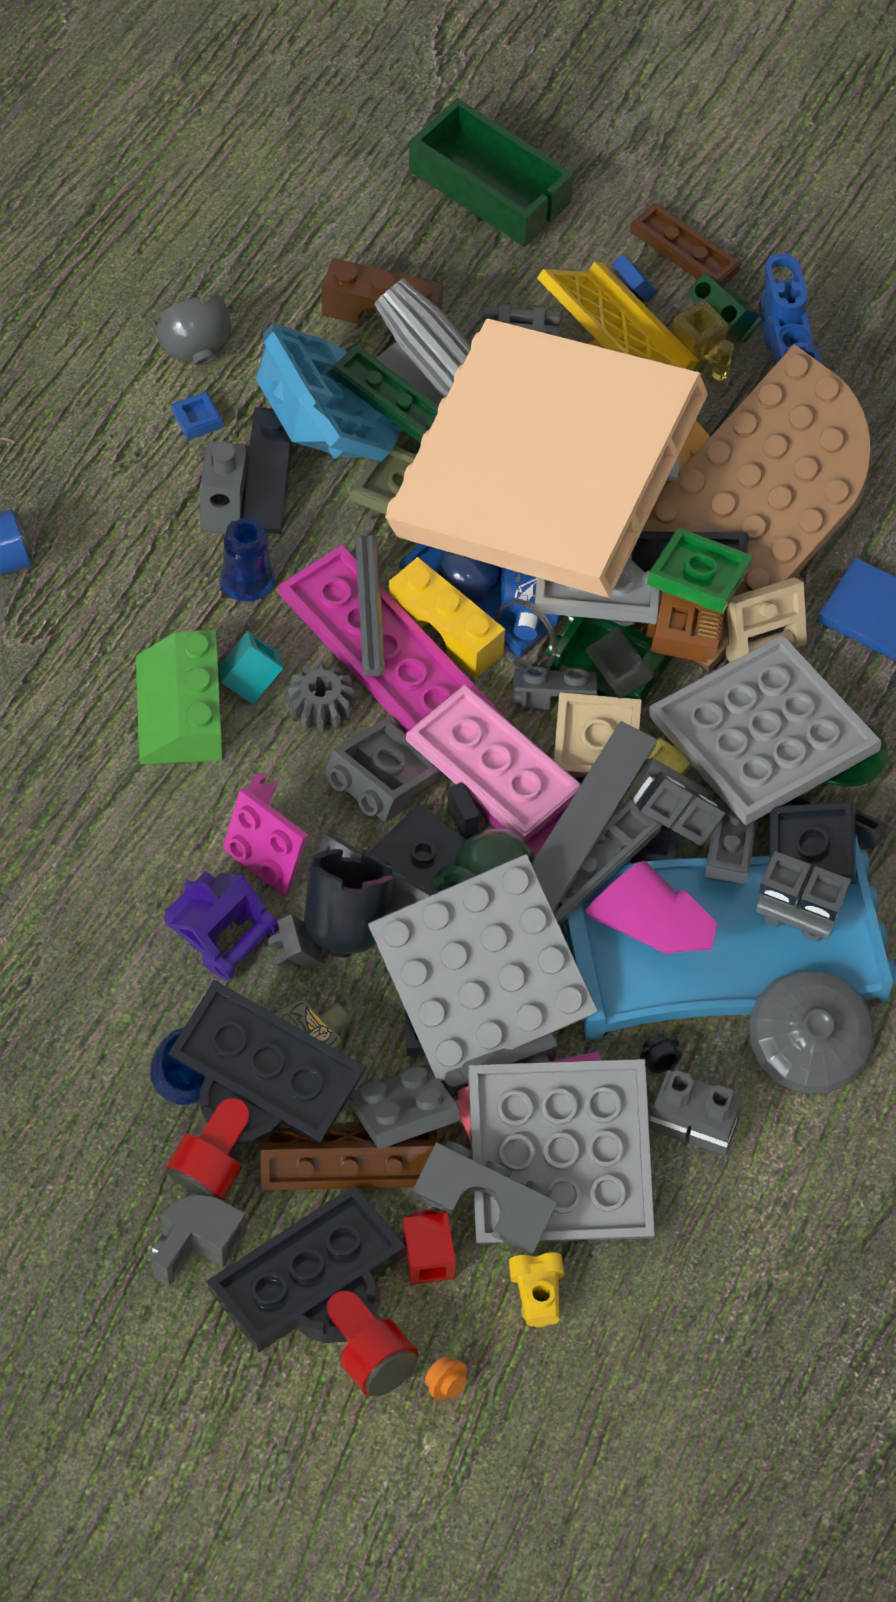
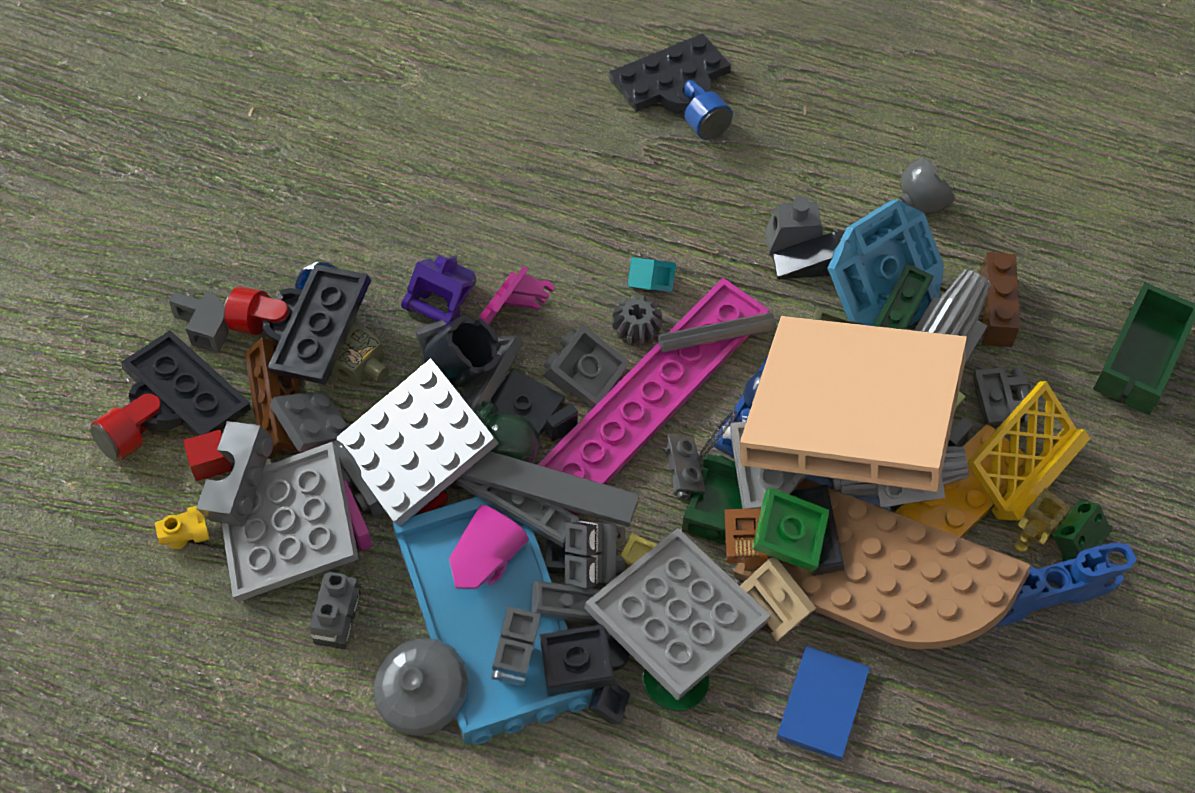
camera: 80 degrees right, 0 degrees up
(179, 699) = (613, 241): bright green slope -> none
(197, 415) = (857, 207): blue tile -> none
(246, 561) = (735, 253): clear blue plant -> none
(446, 1378) = (111, 482): orange plate -> none
(469, 633) = (732, 372): yellow arch -> none
(494, 763) = (603, 430): bright pink tile -> none
(587, 725) = (658, 498): tan plate -> none
(619, 663) = (709, 500): clear smoke tile -> none
(634, 278) = (1087, 466): blue tile -> none
(660, 1053) = (386, 583): black plate -> none
(683, 244) = (1140, 503): reddish brown tile -> none

